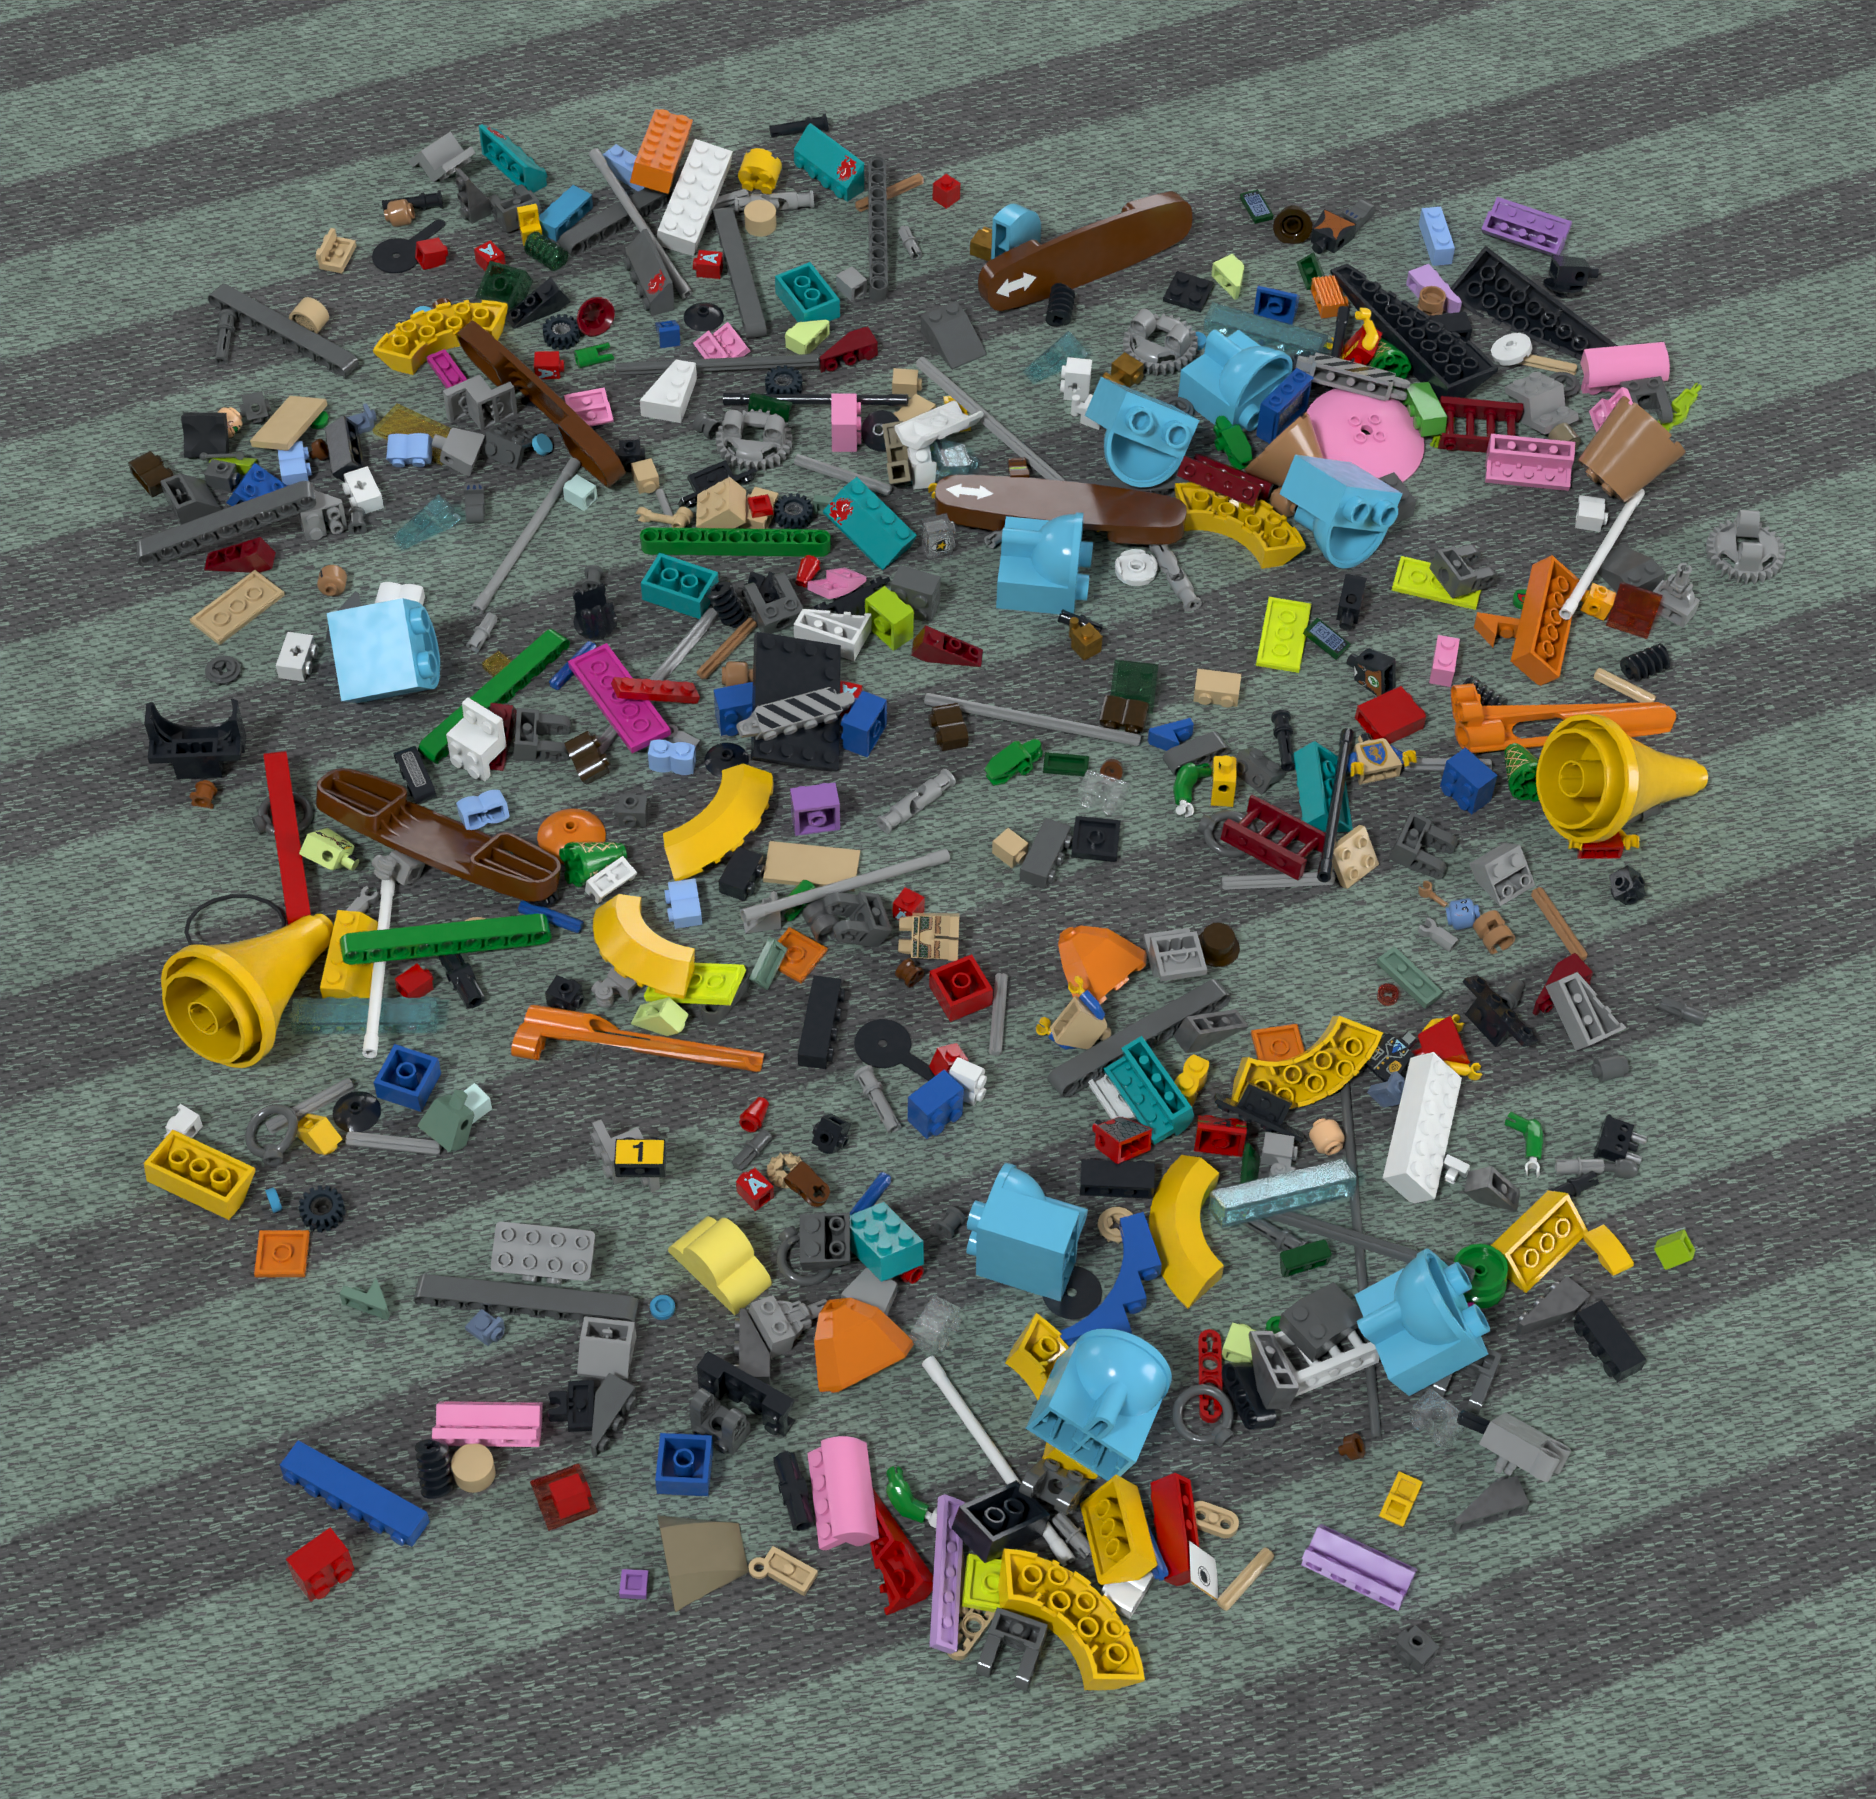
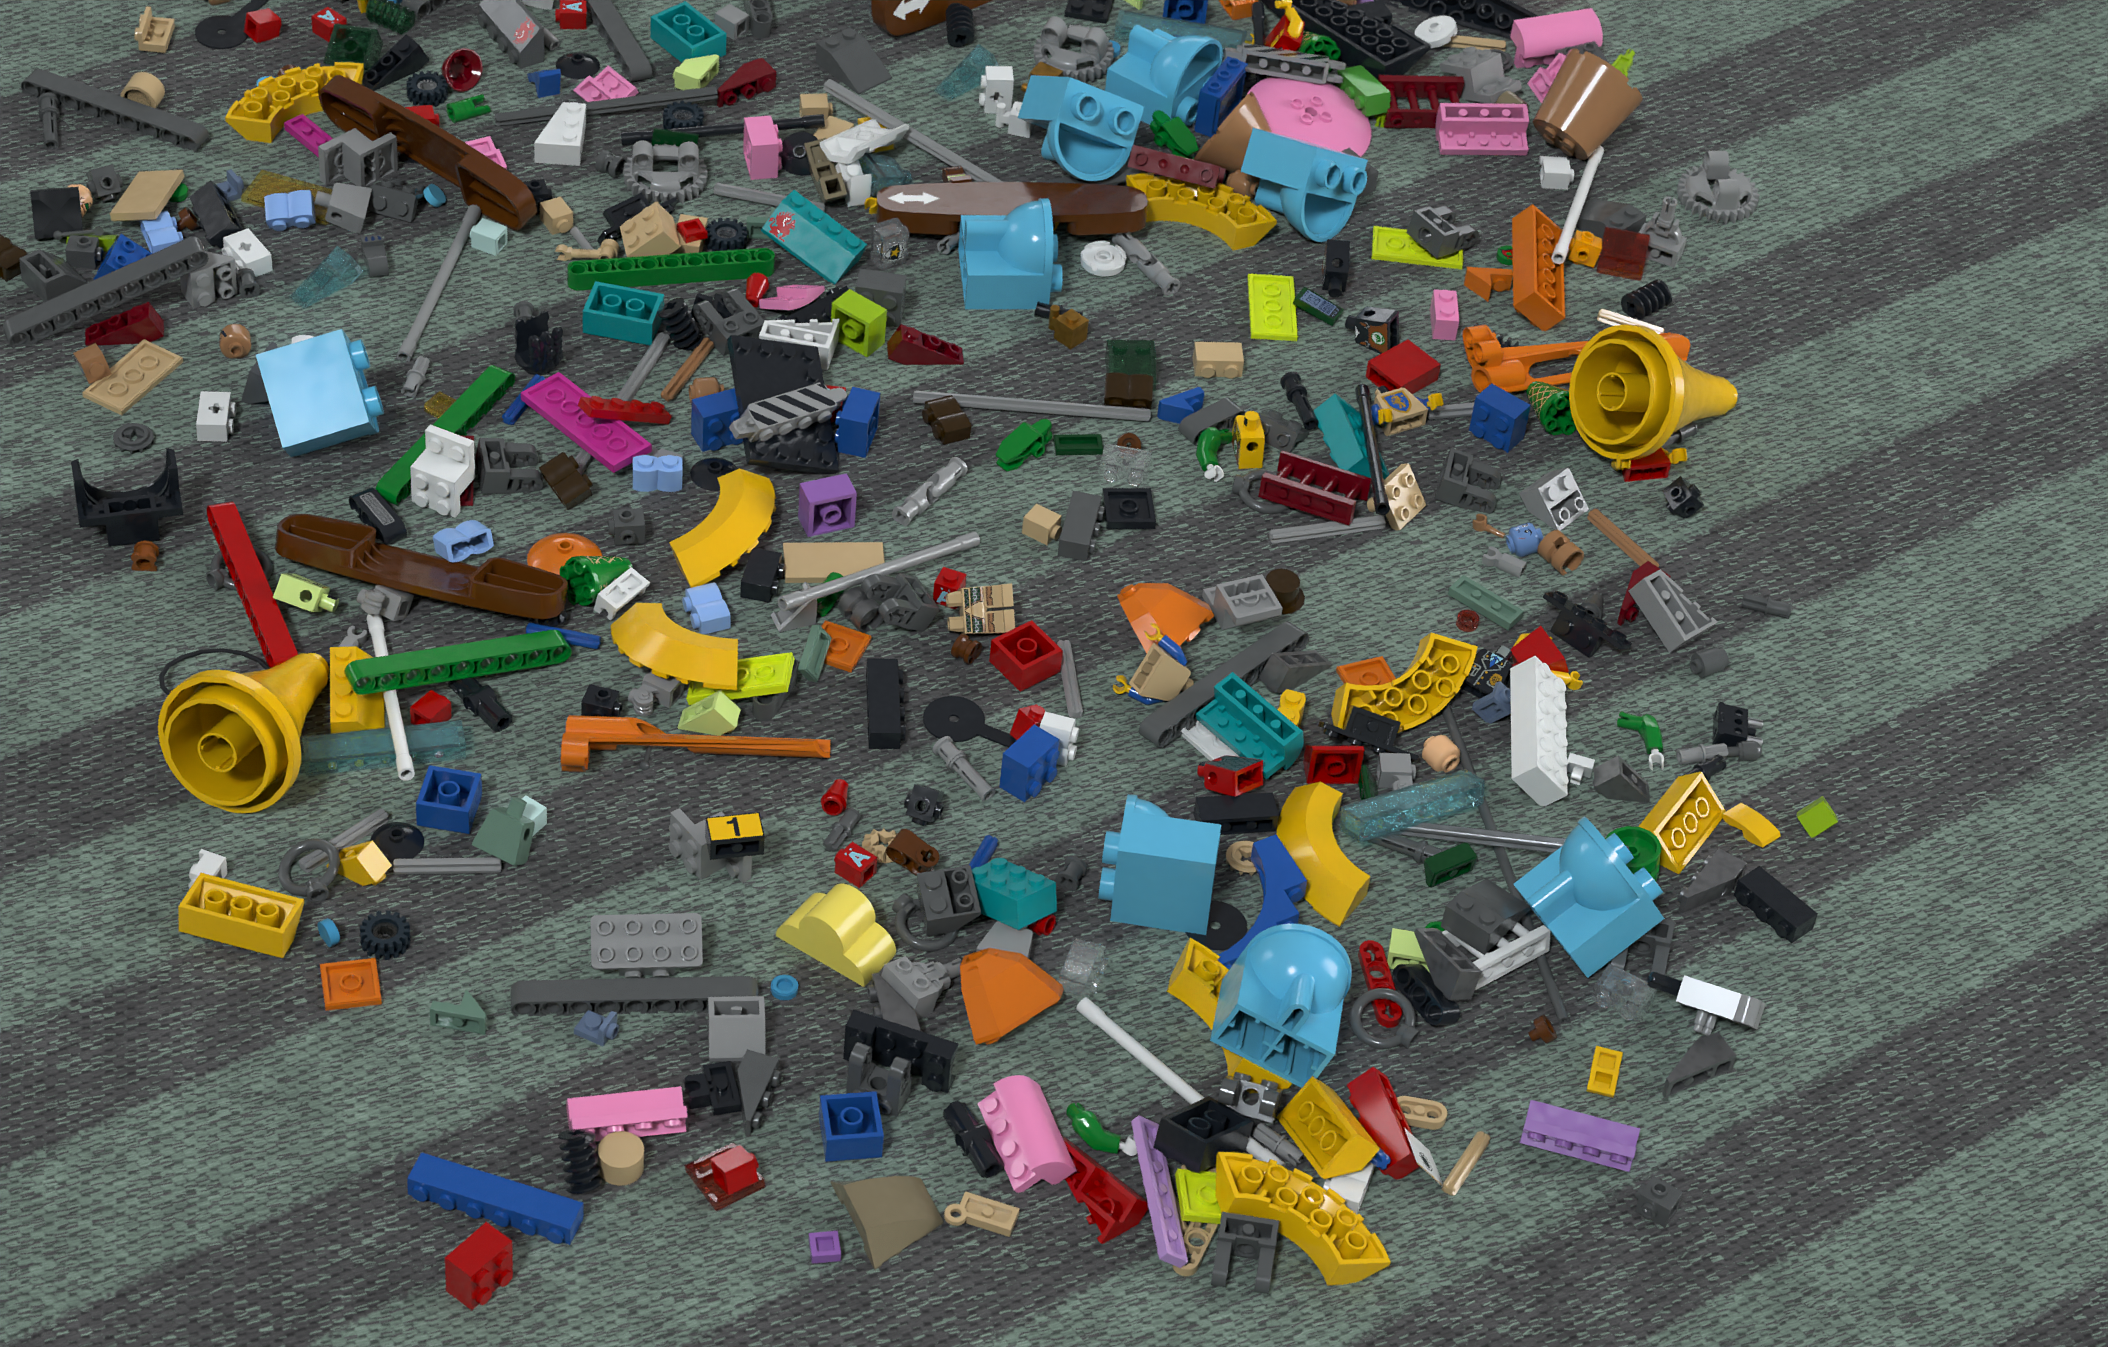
camera: 15 degrees left, 10 degrees down
(202, 592) = (92, 363): none -> medium nougat brick

